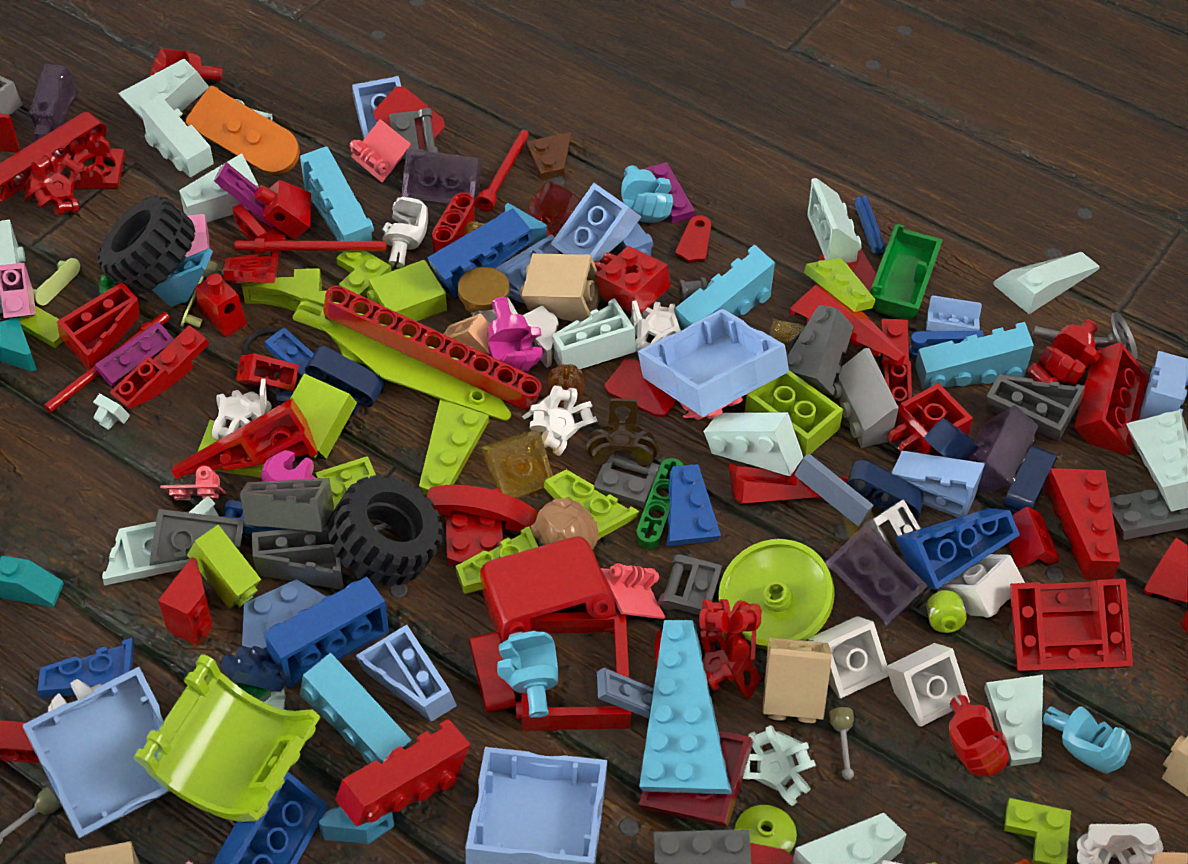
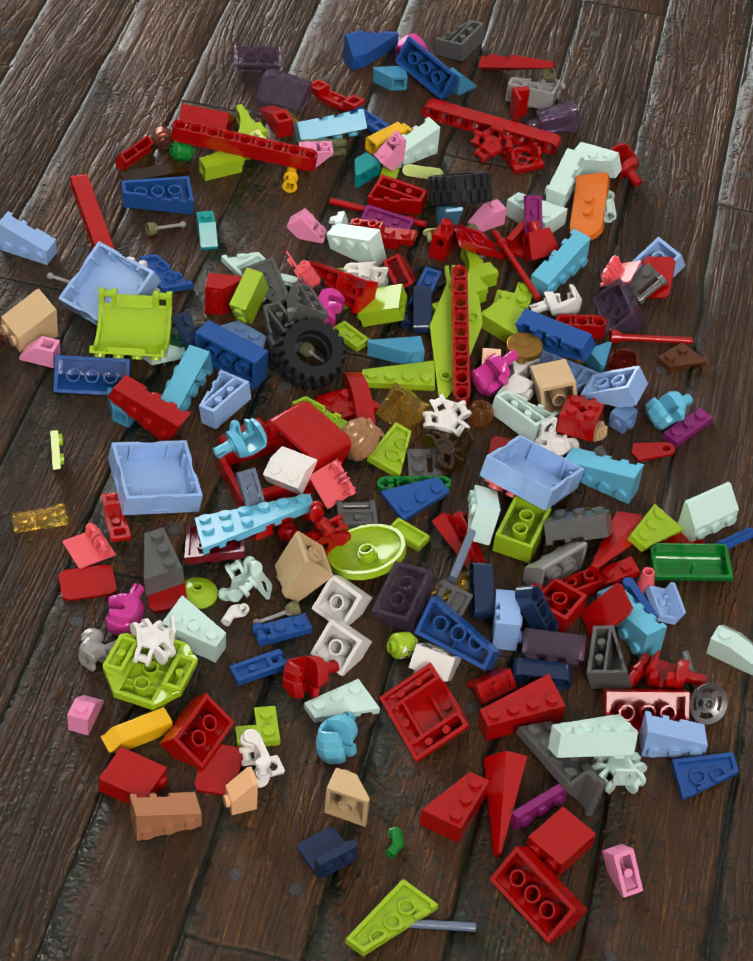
camera: 65 degrees right, 5 degrees down
(94, 453) = (306, 227): none -> bright pink slope
(167, 404) = (357, 243): none -> light aqua wedge
(405, 430) = (397, 350): none -> dark azure slope
(614, 627) = (290, 470): none -> white slope
(741, 538) = (413, 536): none -> lime tile
(822, 795) = (233, 612): none -> white arm
(870, 745) = (282, 629): none -> blue plate
(916, 320) = (646, 578): none -> coral cone
(935, 797) = (258, 667): none -> blue plate
(965, 372) = (608, 609): none -> red piece

